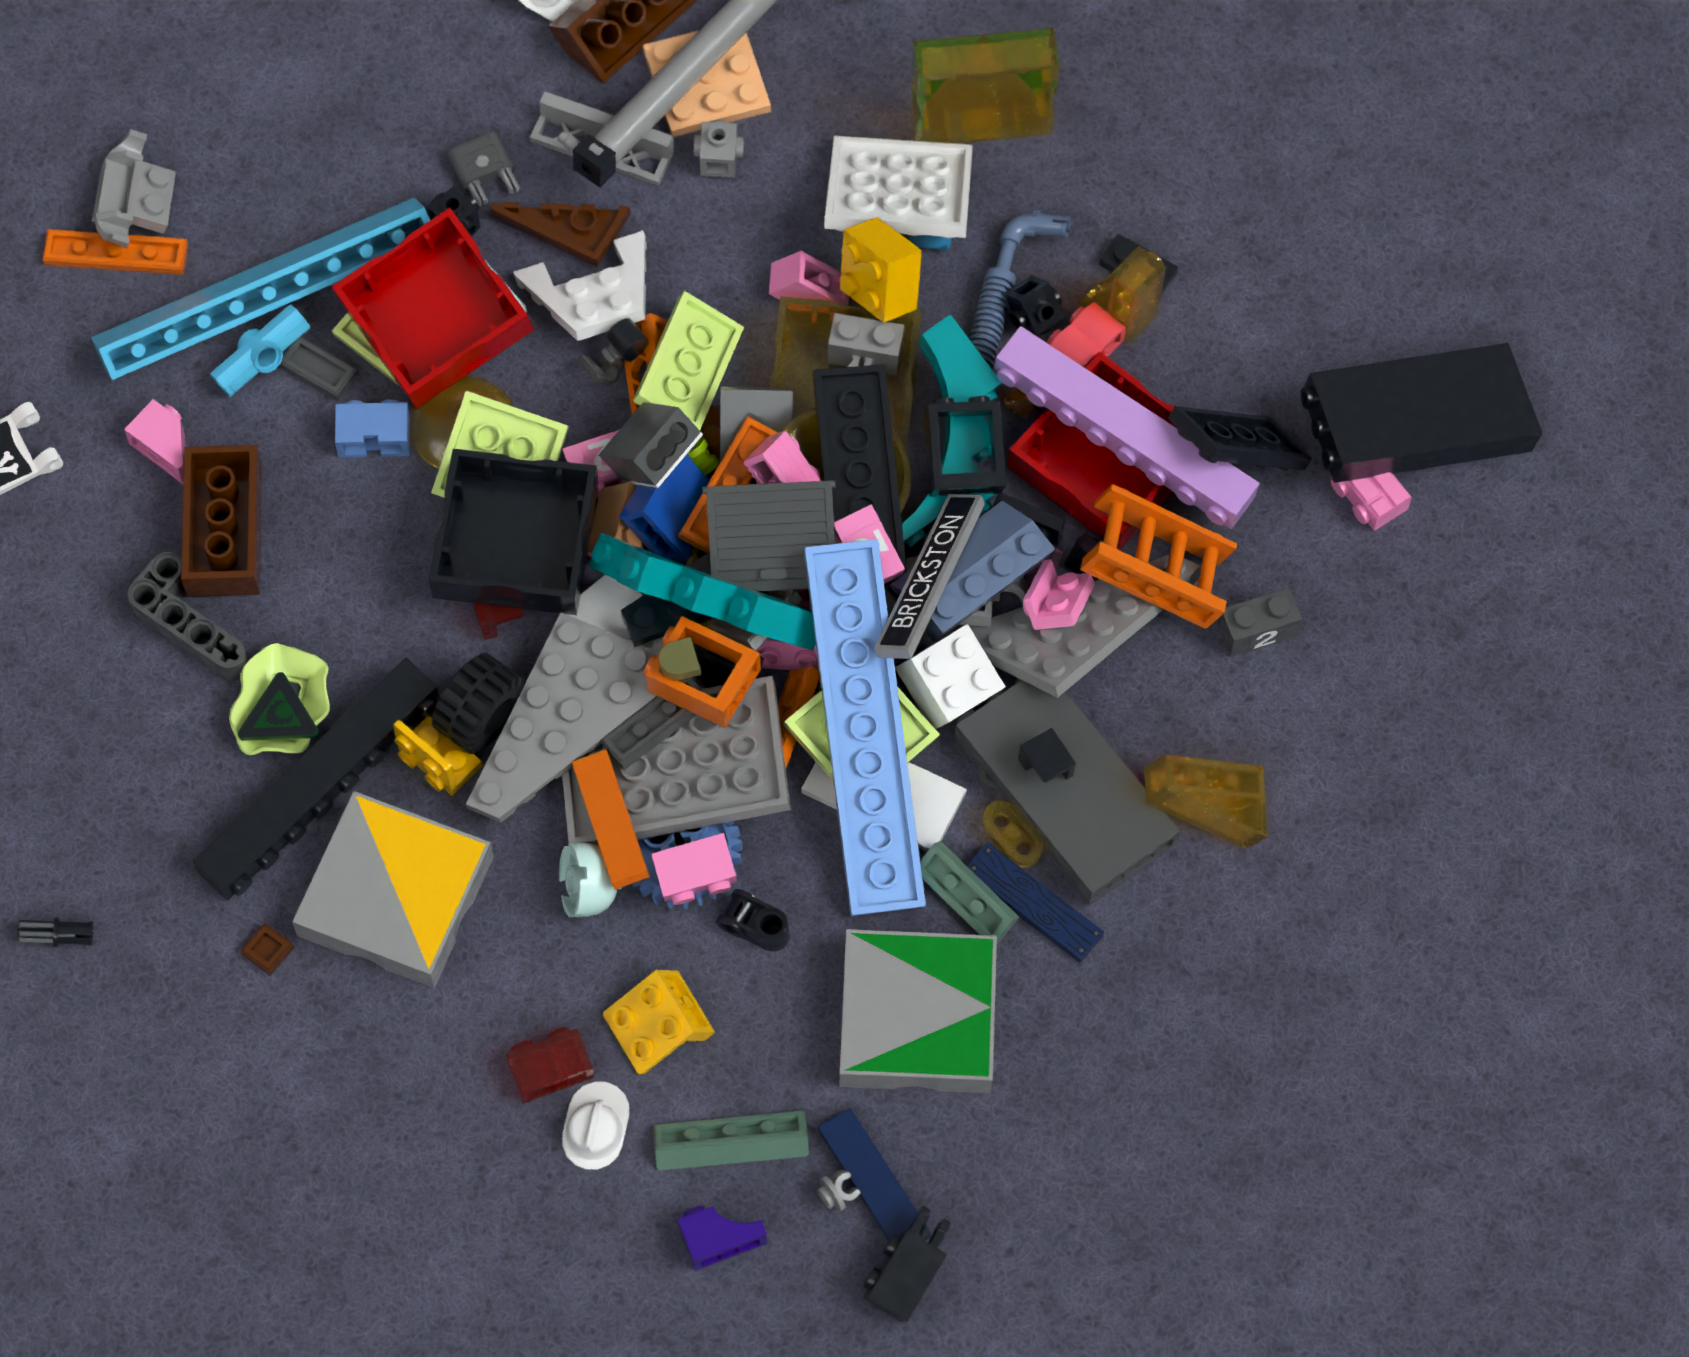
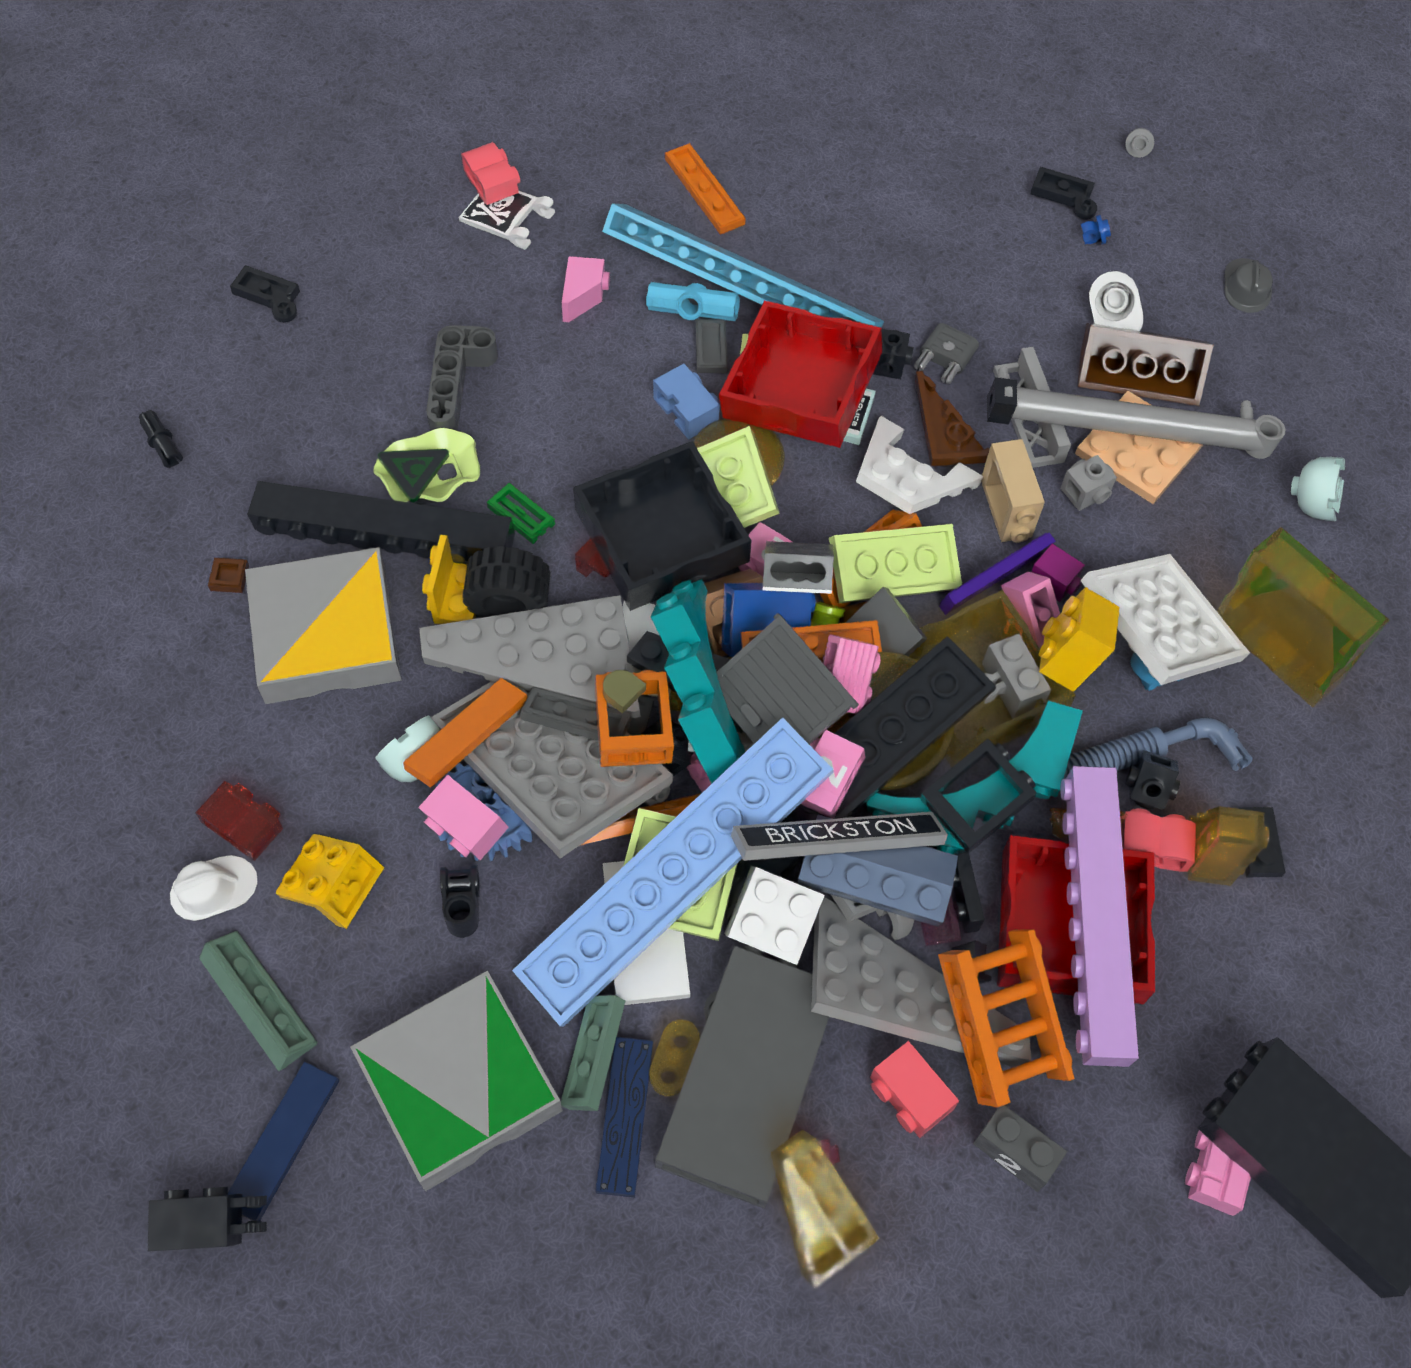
camera: 55 degrees right, 5 degrees down
(131, 192) = (751, 168): light grey plate -> none
(221, 520) = (543, 351): reddish brown brick -> none
(390, 663) = (521, 528): none -> green tile
(625, 343) = (877, 514): leg -> none
(685, 218) = (1012, 490): none -> tan window
(714, 1239) = (153, 1035): dark purple arch -> none
(752, 289) = (996, 573): none -> dark purple tile
(787, 237) = (1061, 569): none -> magenta brick
(831, 1191) = (246, 1112): light grey plate -> none
(1047, 756) = (749, 1037): black panel -> none
(1056, 599) = (906, 954): bright pink bracket -> none
(1162, 670) = (913, 1090): none -> coral brick
(1239, 438) = (1167, 1015): black plate -> none

